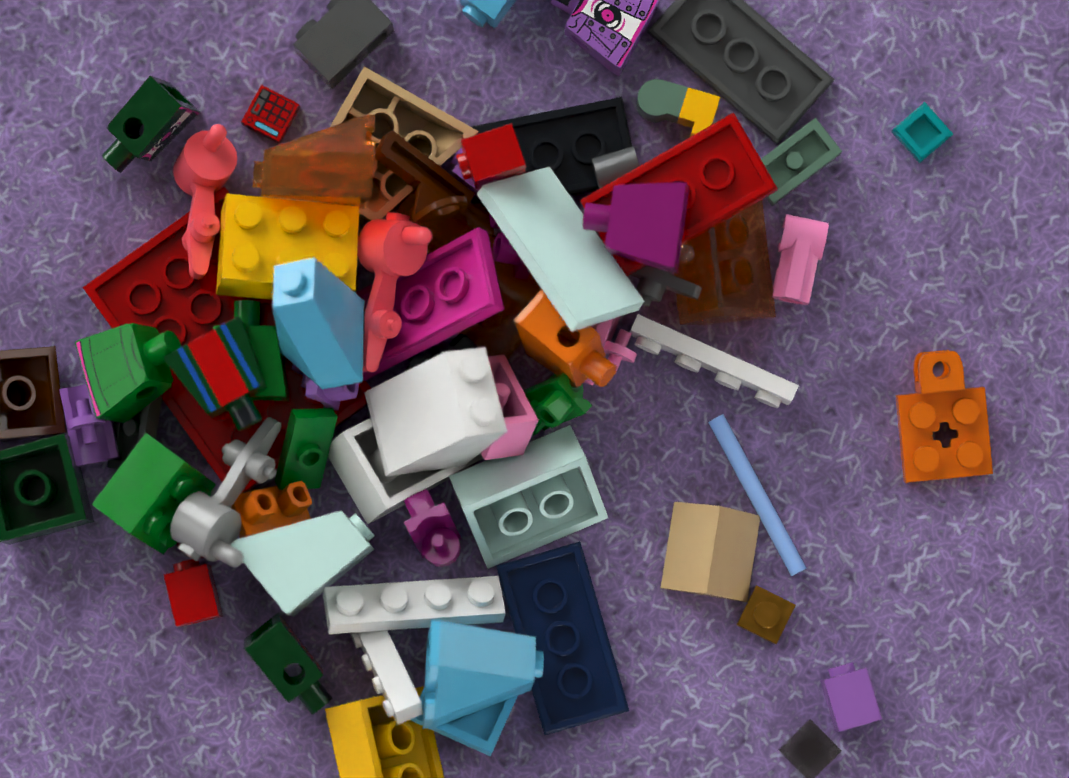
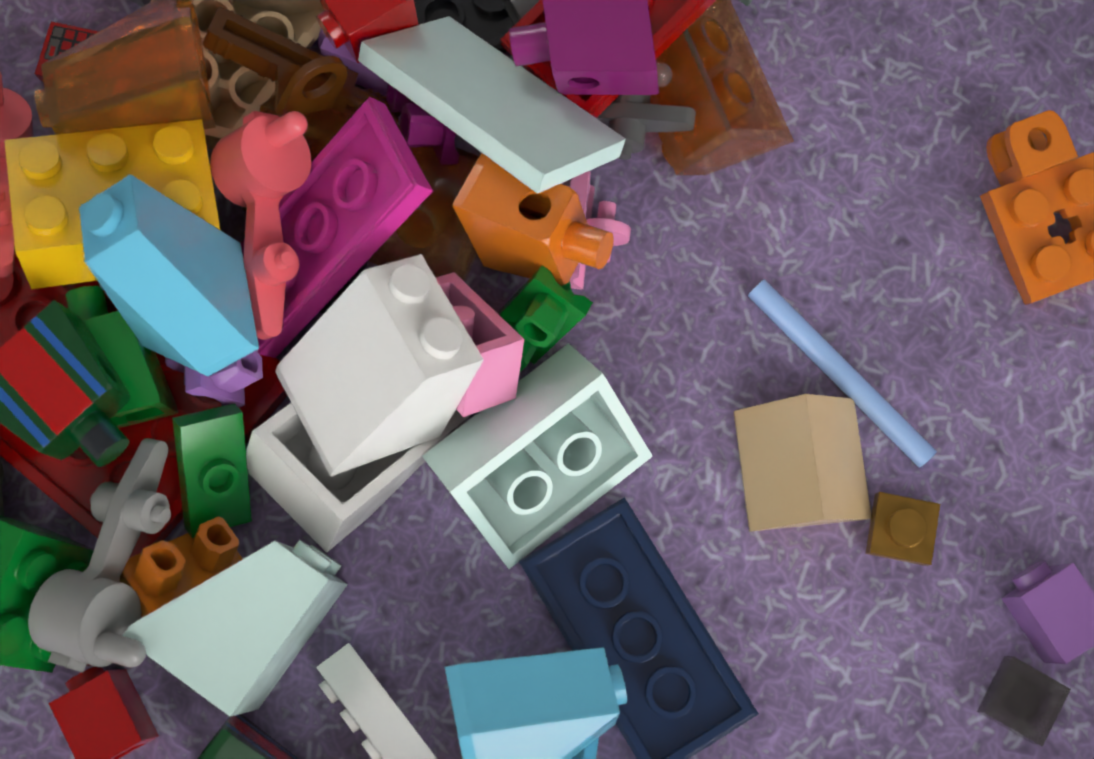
camera: 15 degrees left, 5 degrees down
(413, 604) = (415, 649): white plate -> none
(432, 529) = (416, 534): magenta hips -> none
(730, 370) = (756, 215): white plate -> none
(800, 250) = (802, 50): bright pink piece -> none

